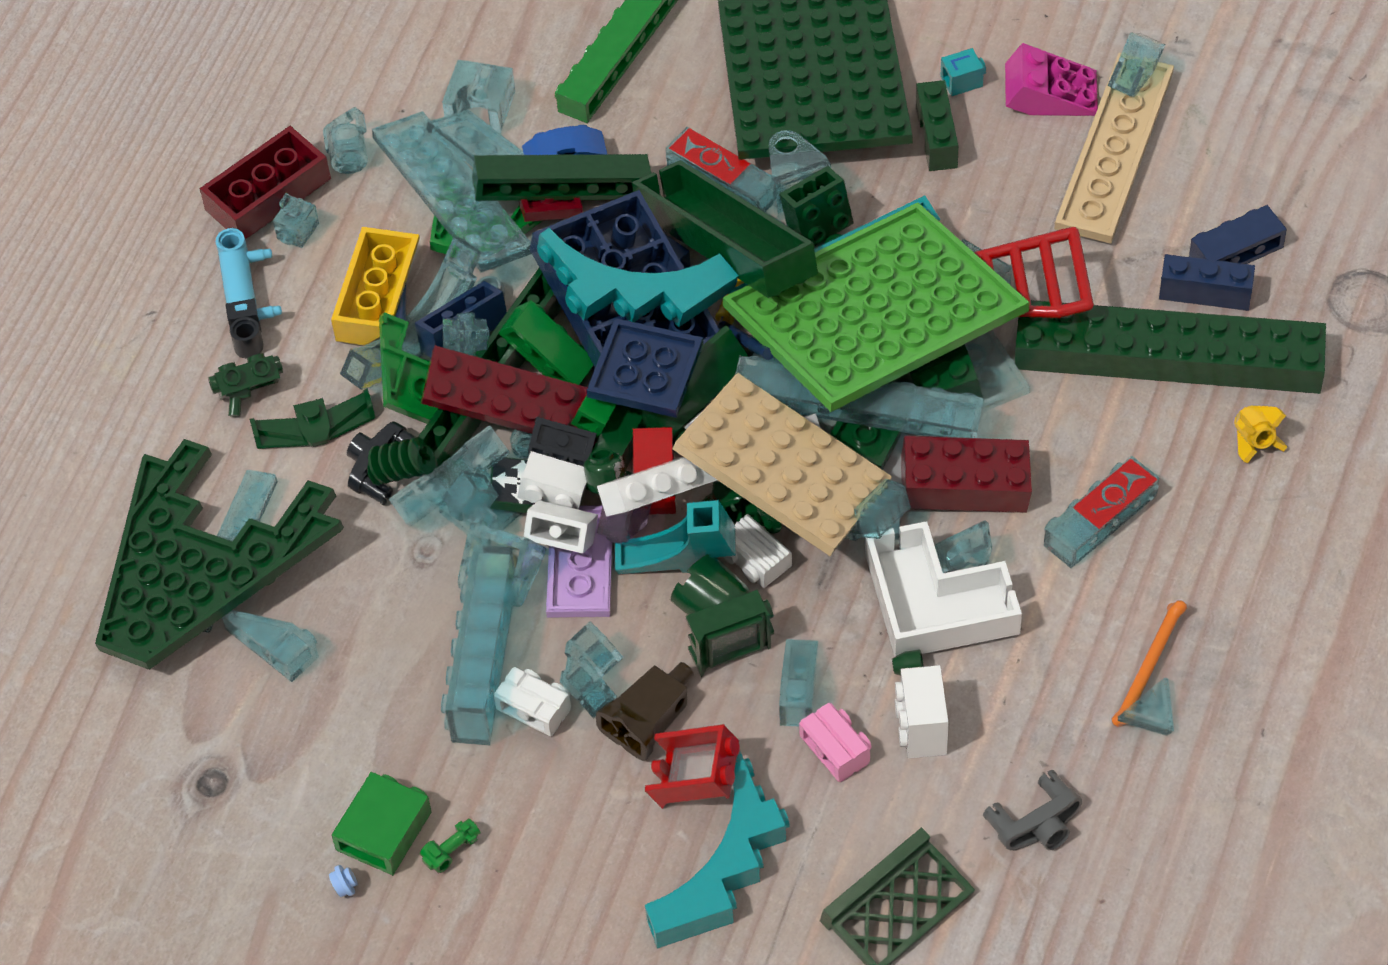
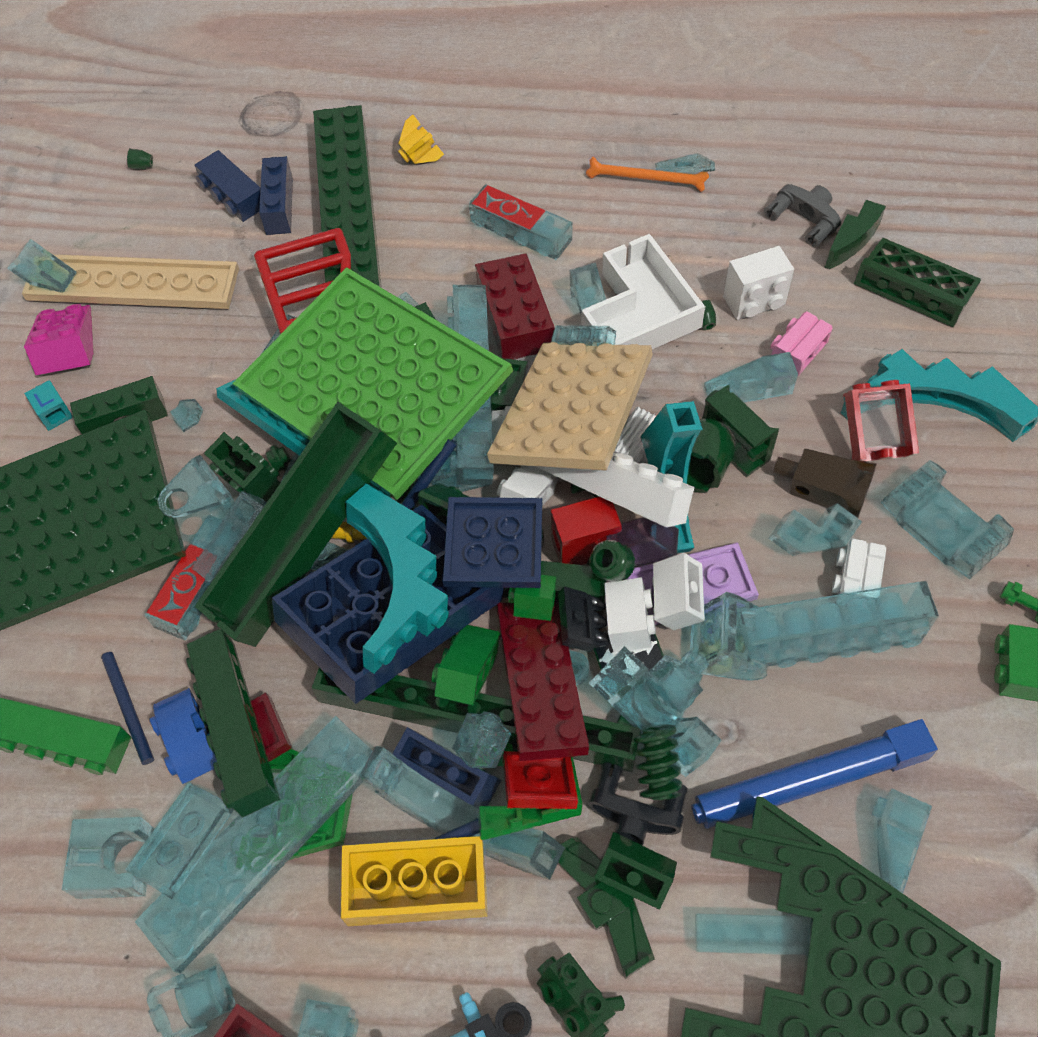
camera: 105 degrees left, 5 degrees up
(324, 437) = (636, 870): none -> dark green brick
(352, 658) = (893, 750): none -> blue brick
(409, 376) = (539, 782): none -> red tile
(566, 803) = (945, 522): none -> clear light blue plate
(623, 117) = (127, 708): none -> dark blue bar
(741, 185) = (228, 534): none -> clear light blue slope
(917, 179) = (187, 414): none -> clear light blue piece
(985, 854) = (855, 233): none -> dark green slope
(1309, 164) = (139, 159): none -> dark green hose

